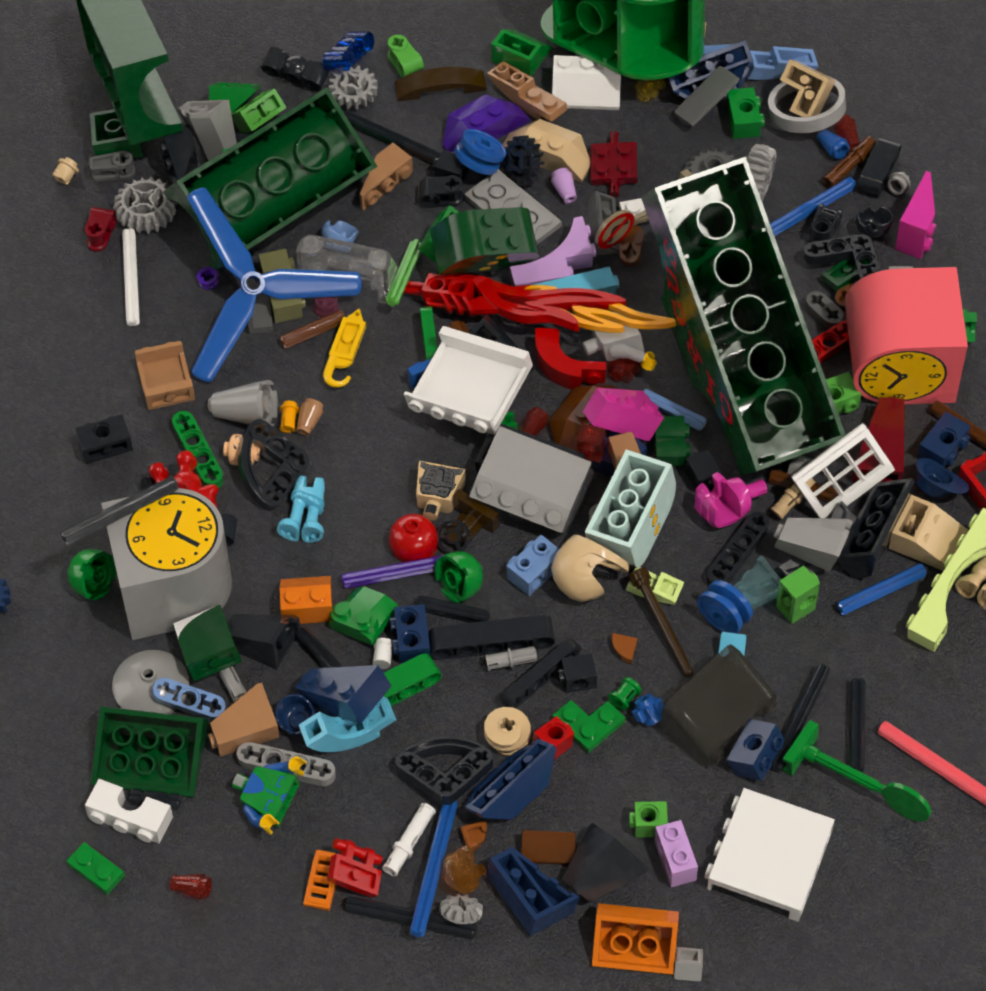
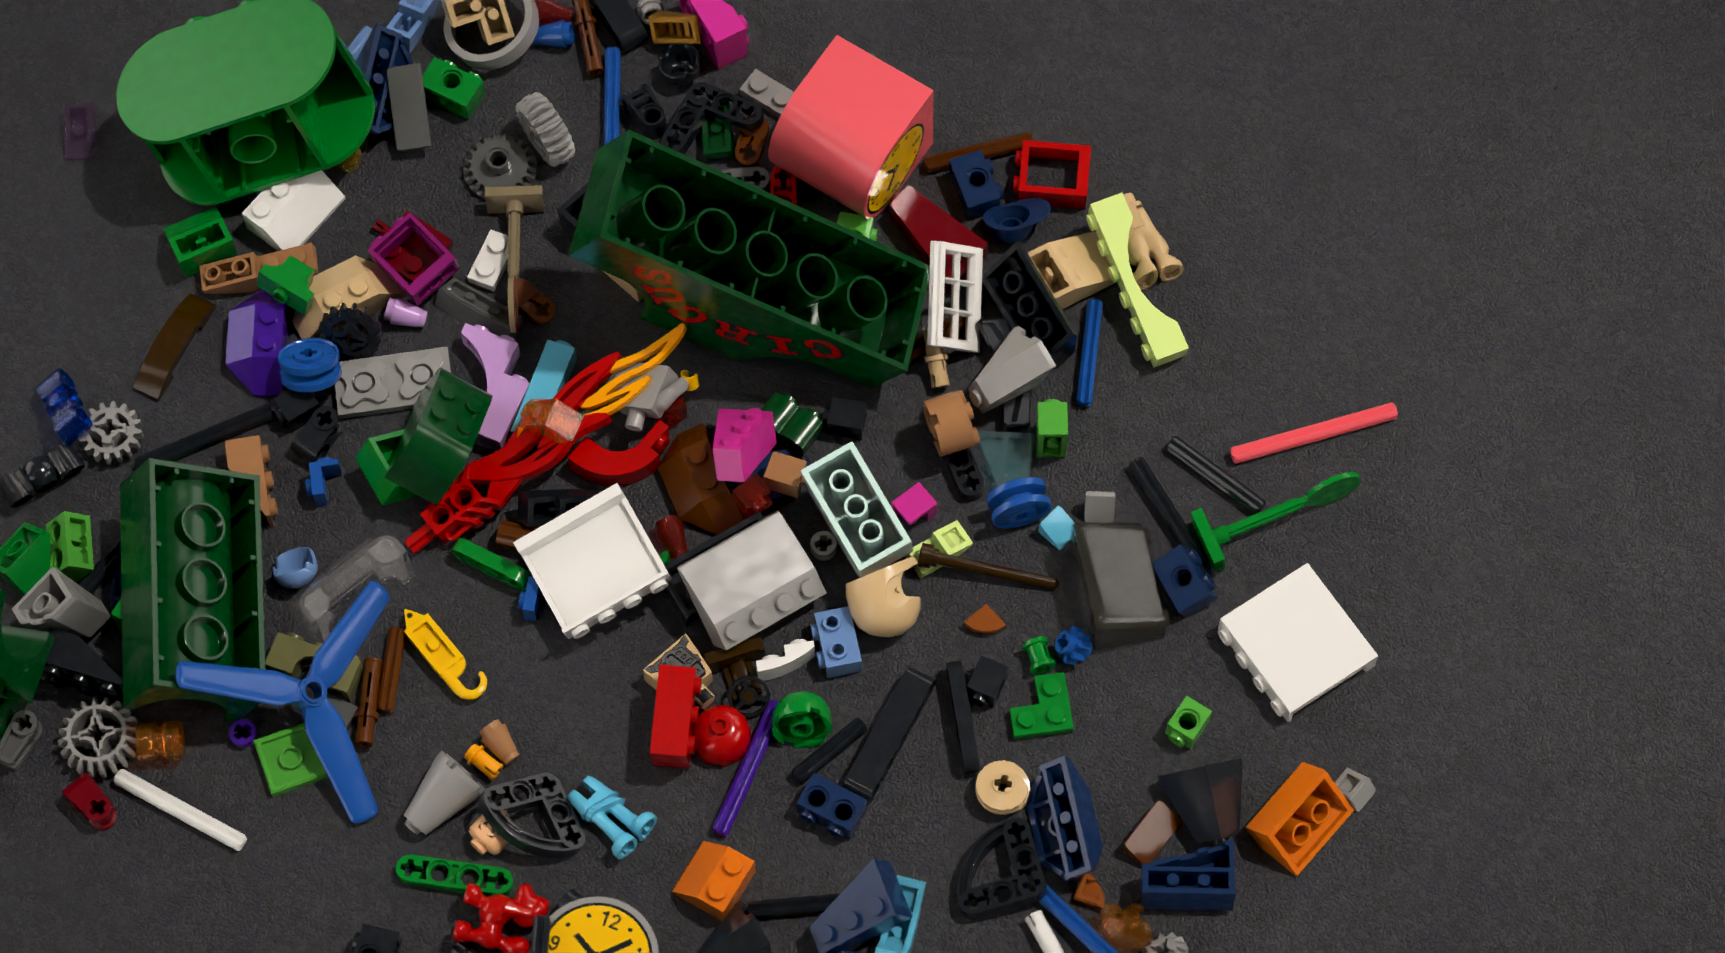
camera: 55 degrees left, 10 degrees up
(164, 375) = (337, 852): medium nougat panel -> none
(166, 236) = (157, 741): none -> clear orange wheel
(203, 311) = (289, 760): none -> bright green tile
(272, 333) = (367, 715): none -> reddish brown pin
(321, 305) = (379, 636): clear pink wheel -> none
(363, 614) = (775, 837): green slope -> none
(383, 652) = (831, 847): white piece -> none
(396, 495) = (675, 716): none -> red wedge
(403, 273) = (387, 526): bright green axle -> none
(404, 56) = (112, 358): bright green piece -> none
(411, 209) = (319, 471): none -> blue bracket
(411, 678) = (879, 834): green beam -> none
(499, 545) = (796, 655): none -> white slope
(511, 658) = (924, 733): light grey axle -> none
(525, 105) = (288, 283): none -> green brick
(545, 292) = (551, 419): none -> clear orange slope
(557, 729) = (1039, 739): red brick -> none
(601, 178) = (432, 277): none -> magenta window
(673, 547) = (915, 504): none -> dark pink panel
(674, 409) = (754, 395): medium blue axle -> none
(676, 853) = (1240, 724): lavender brick -> none
(728, 499) = (898, 419): dark pink piece -> none
(746, 526) = (950, 422): none -> medium nougat brick
(769, 664) = (1099, 506): none -> light grey slope
(894, 199) = (660, 32): none -> pearl gold slope

